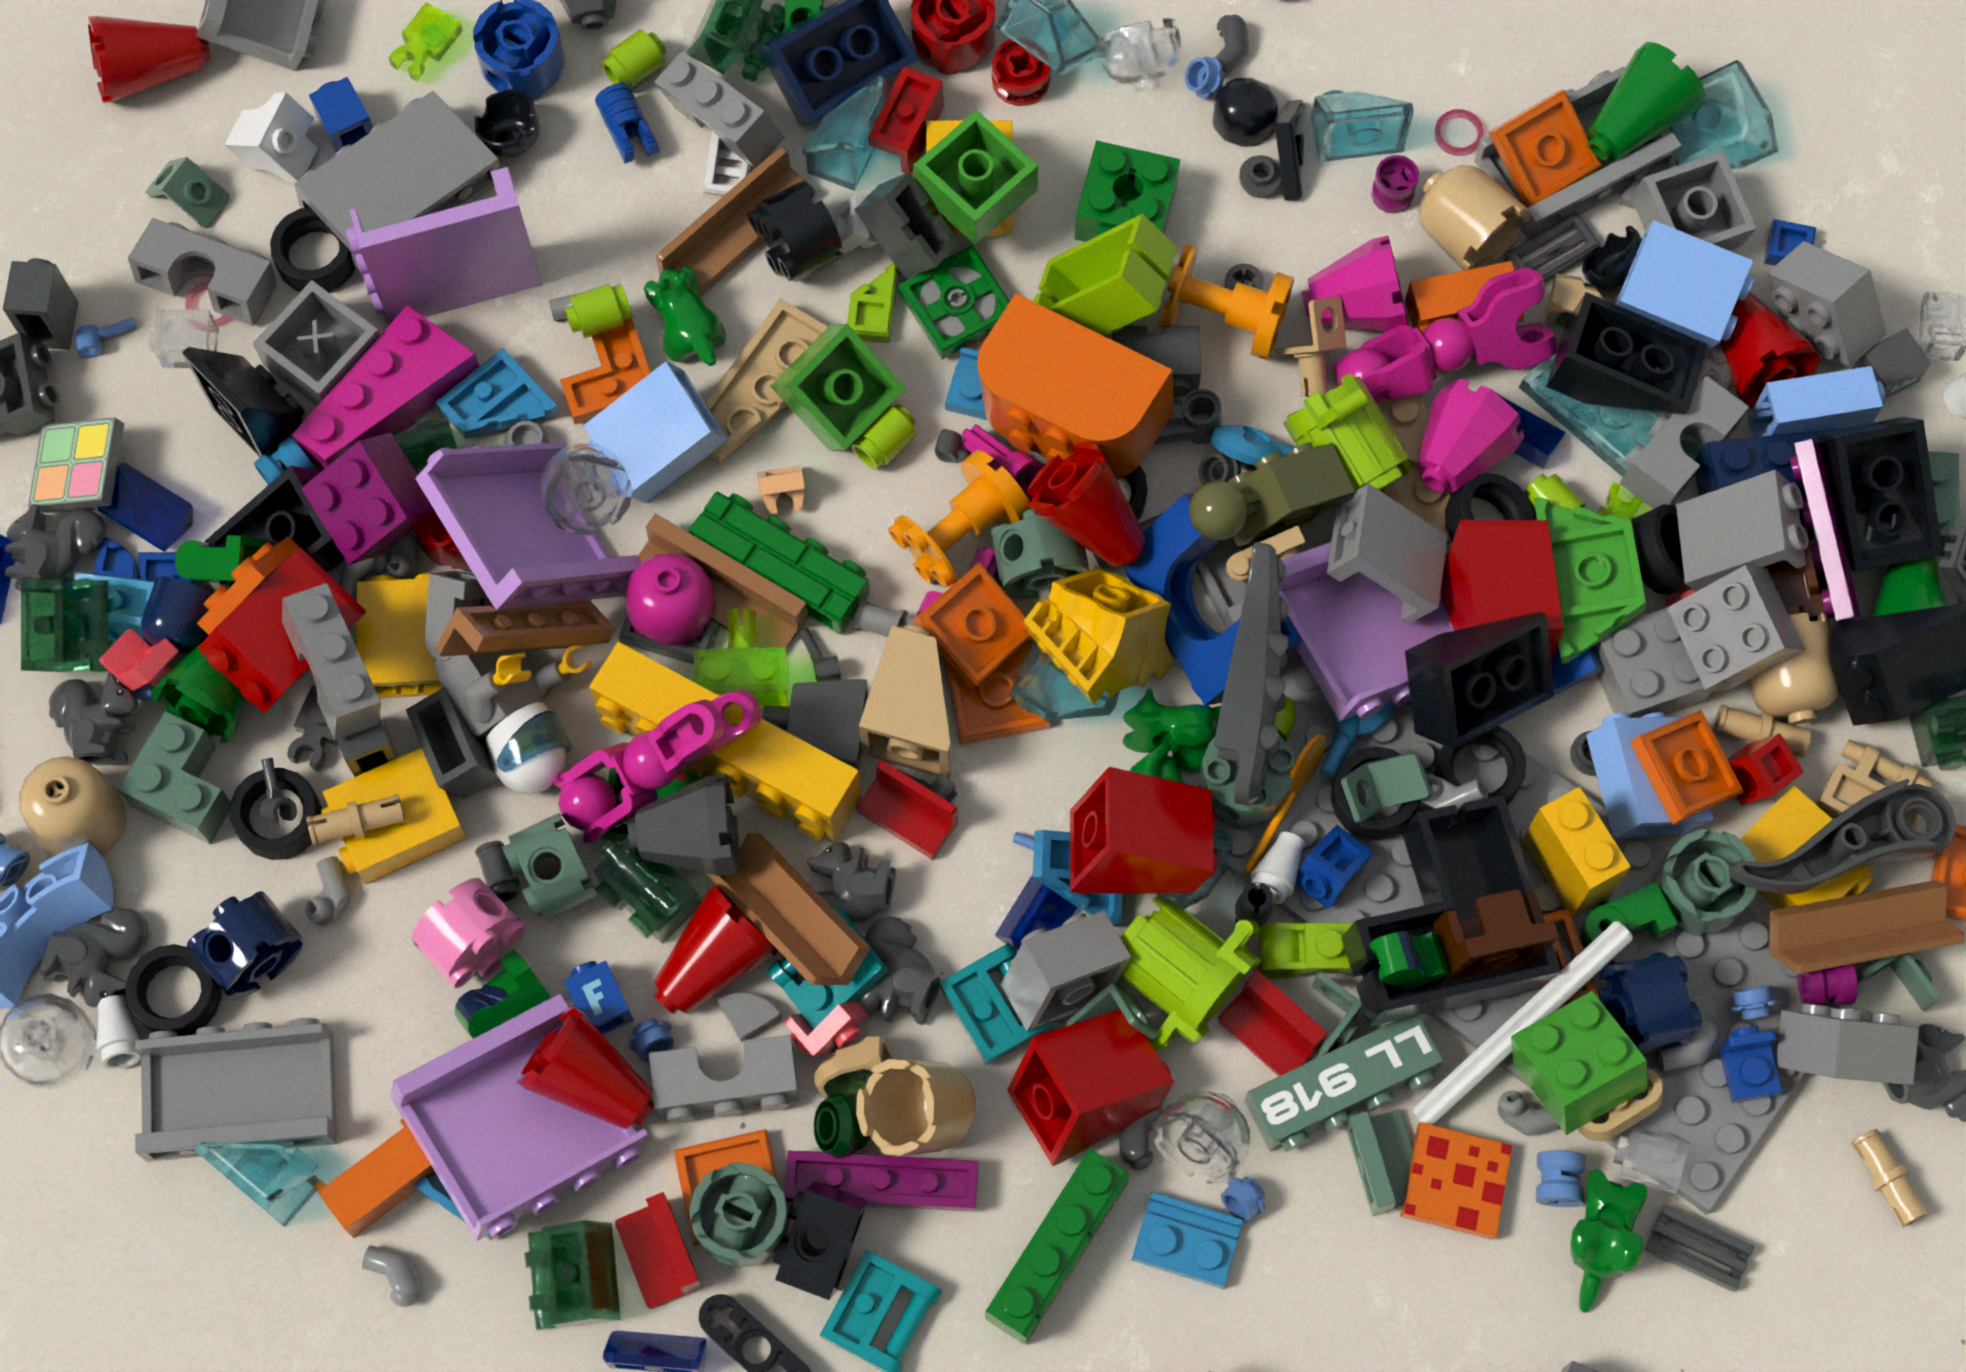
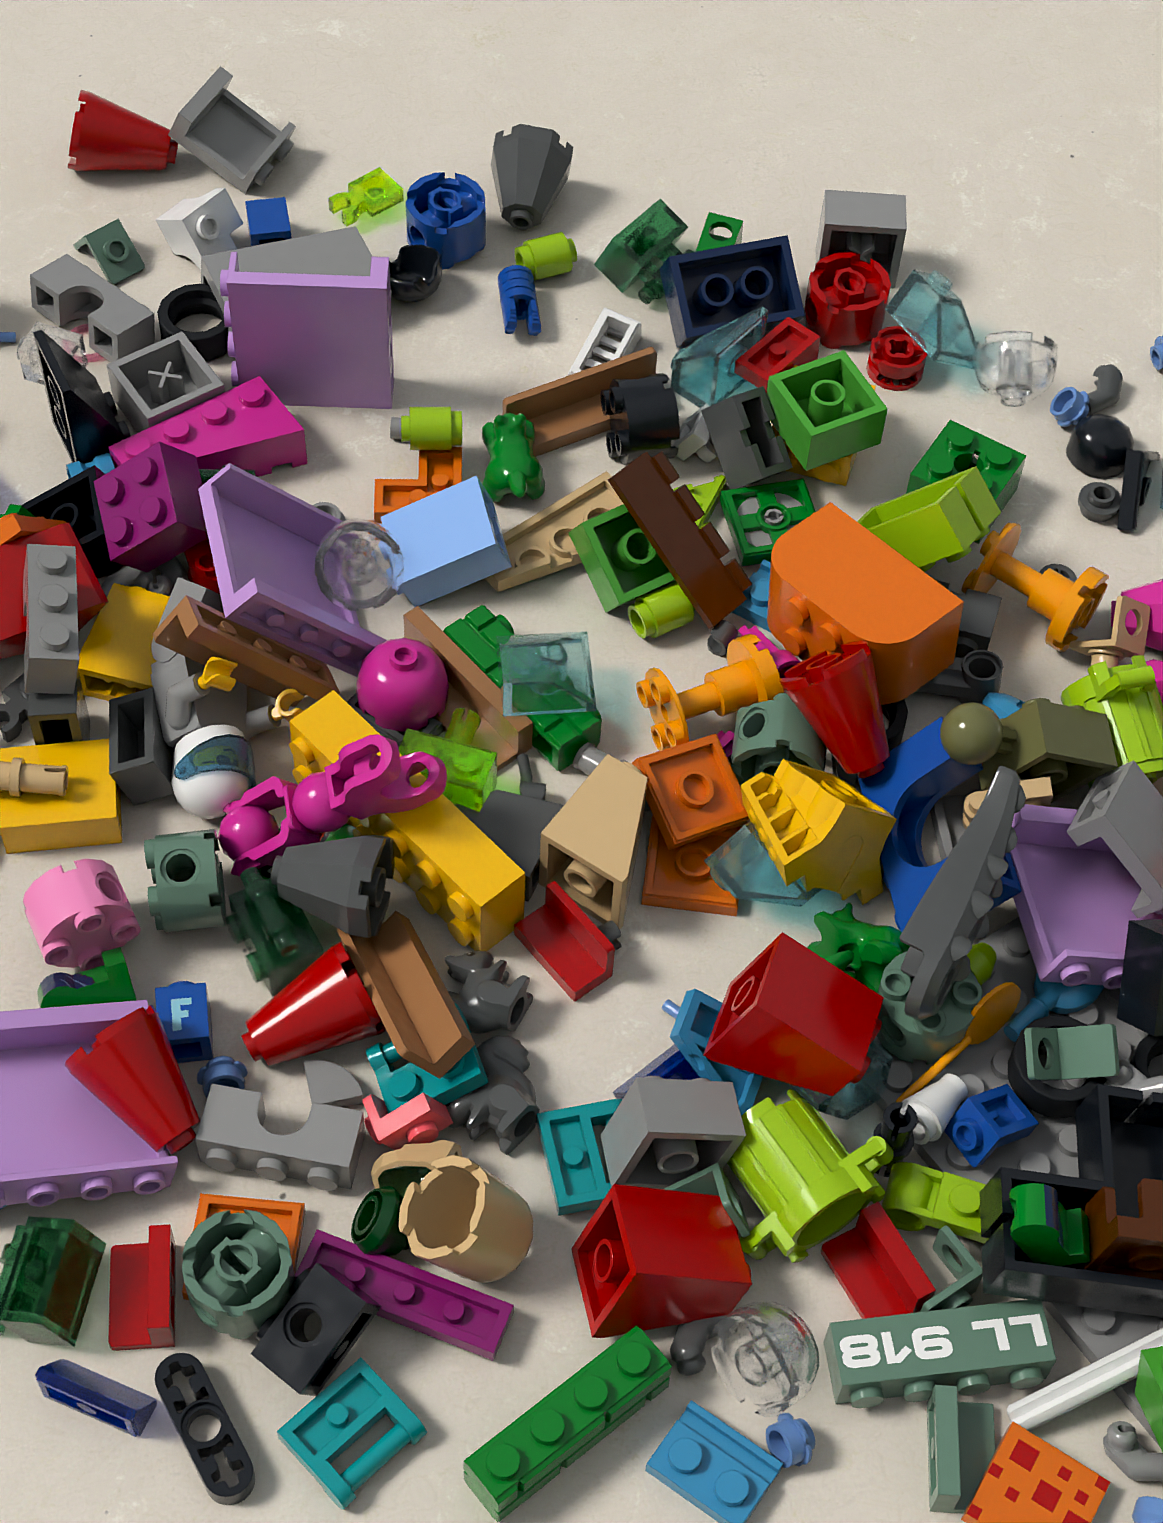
camera: 15 degrees right, 15 degrees down
(495, 398) = (314, 476): dark azure wing -> none
(497, 870) = (135, 876): dark grey pin -> none
(715, 103) = (601, 296): light grey arch -> none
(781, 480) = (547, 618): light nougat tile -> none
(801, 548) = (545, 673): none -> clear light blue slope
(886, 372) = (685, 549): none -> reddish brown windscreen

